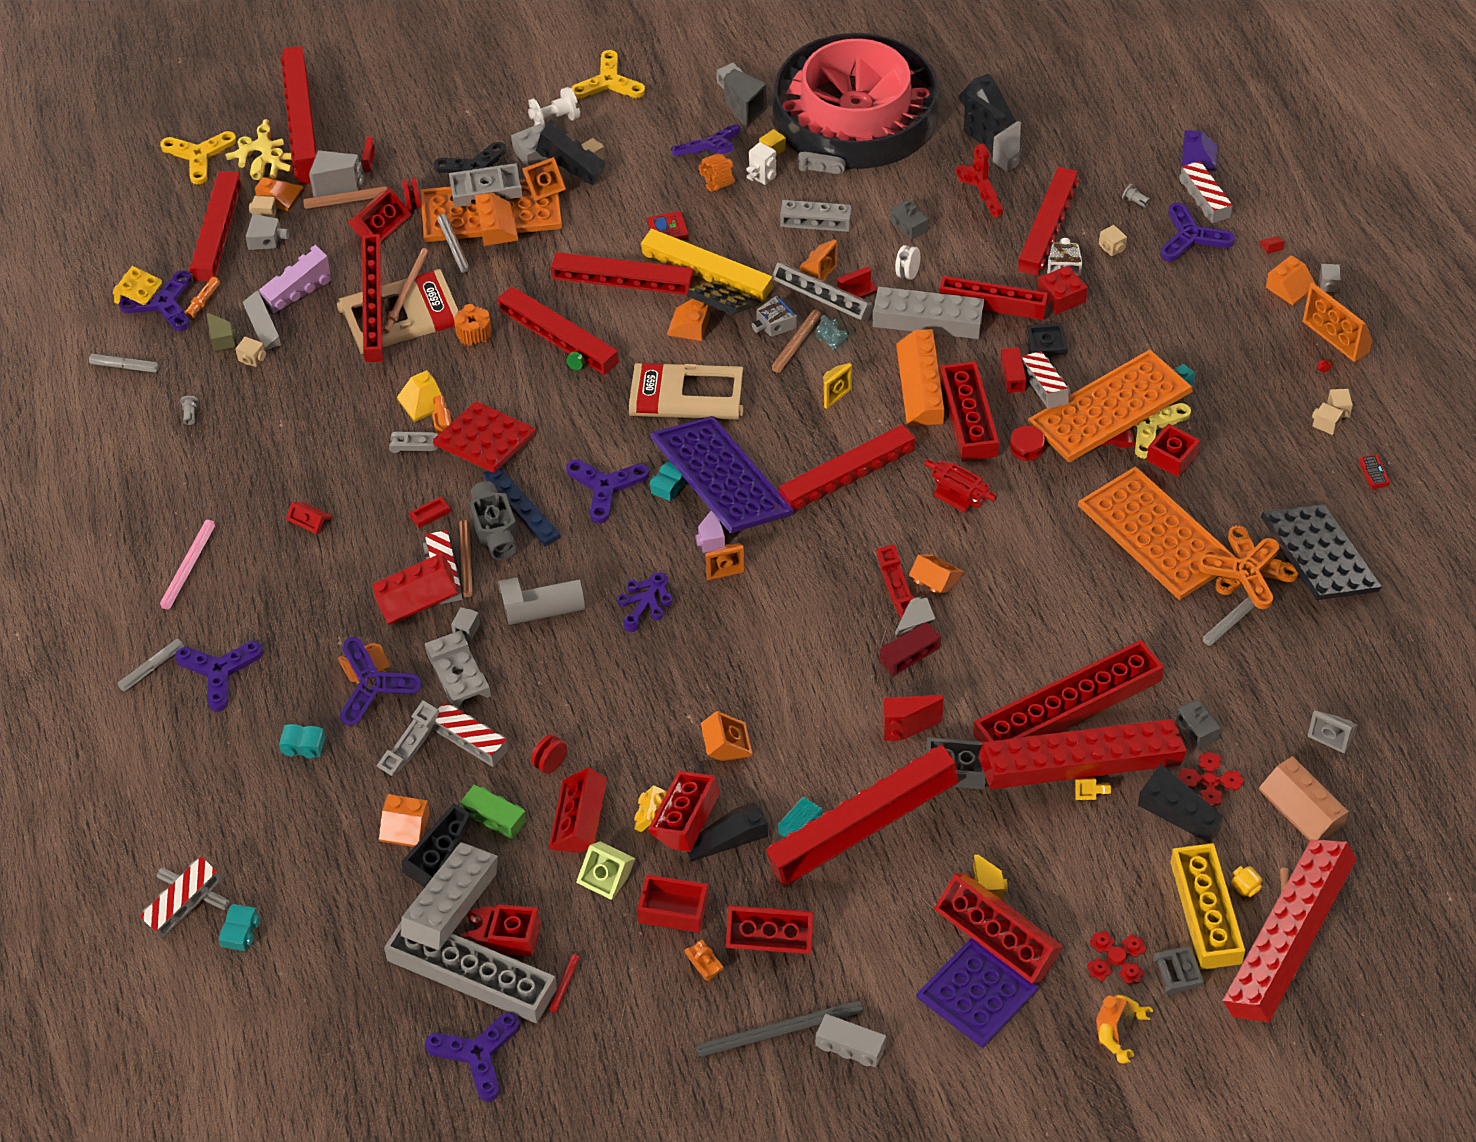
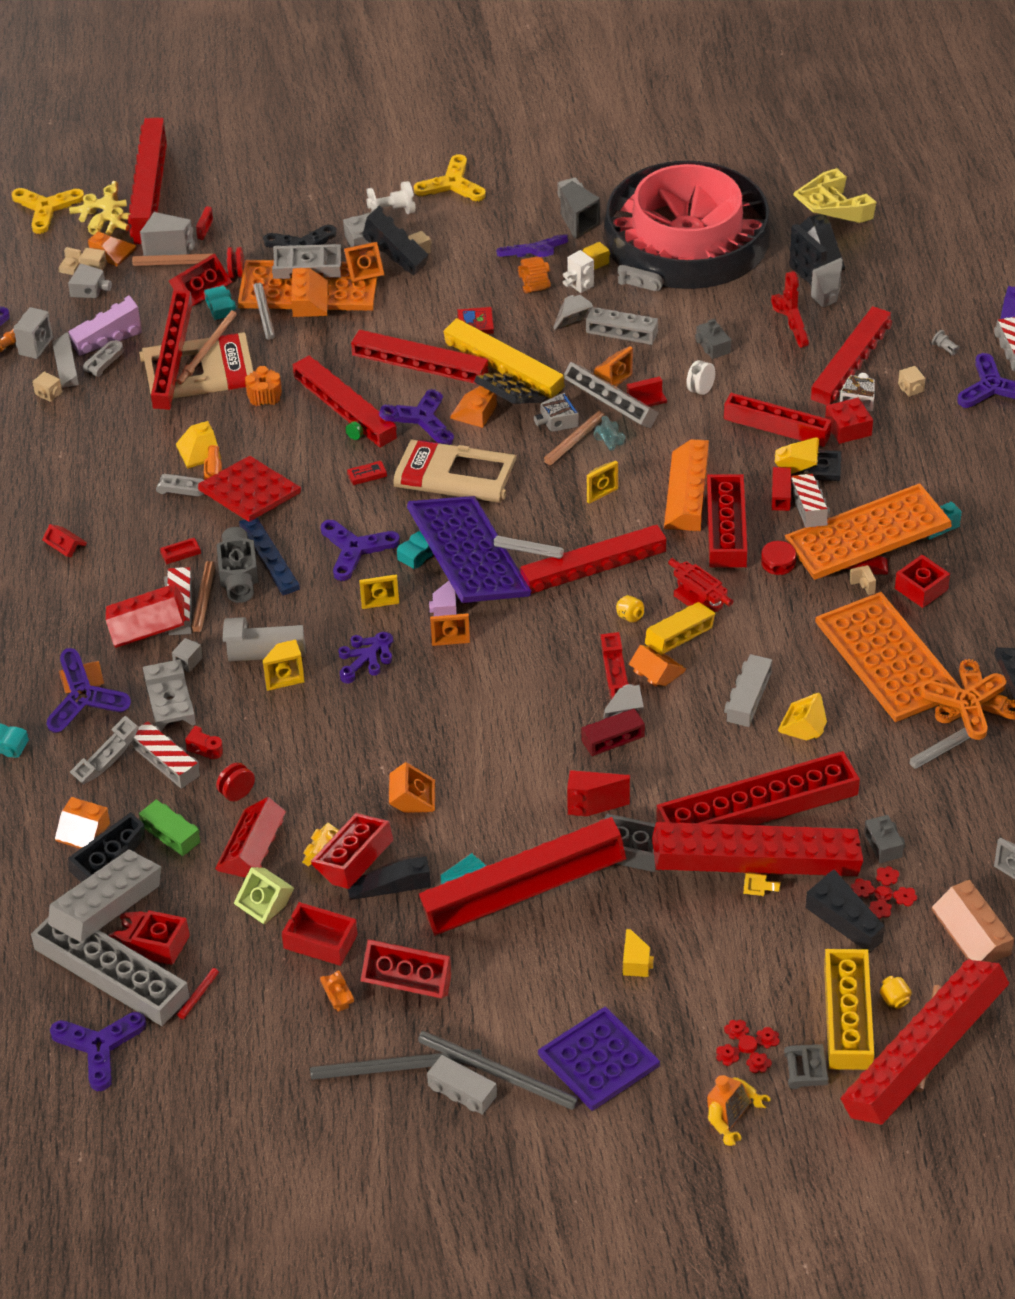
camera: 10 degrees right, 5 degrees down
(215, 226) = (44, 270): red brick -> none
(221, 333) = (23, 366): olive slope -> none
(223, 294) = (33, 332): none -> light grey brick
(240, 213) = (70, 262): none -> tan bracket
(300, 313) = (103, 358): none -> light grey plate
(405, 238) = (219, 302): none -> teal brick
(506, 717) = (204, 744): none -> red leg
(568, 623) = (283, 666): none -> yellow slope
(598, 404) = (367, 473): none -> red tile
(639, 336) = (421, 415): none -> dark purple piece
(644, 530) = (379, 591): none -> yellow slope
(763, 205) = (572, 311): none -> light grey slope
(781, 464) = (529, 547): none -> light grey axle
(882, 1020) = (497, 1070): none -> dark grey axle
(896, 516) = (630, 608): none -> yellow head
(925, 310) = (722, 427): light grey brick -> none
(950, 531) = (679, 628): none -> yellow brick
(984, 58) = (825, 197): none -> light yellow wedge
(998, 928) = (632, 999): red brick -> none
(1023, 333) = (798, 455): none -> yellow slope
(1032, 586) = (748, 690): none -> light grey brick
(1092, 608) = (805, 718): none -> yellow slope
(1117, 453) = (865, 577): none -> tan bracket
(1147, 432) = (914, 550): light yellow piece -> none

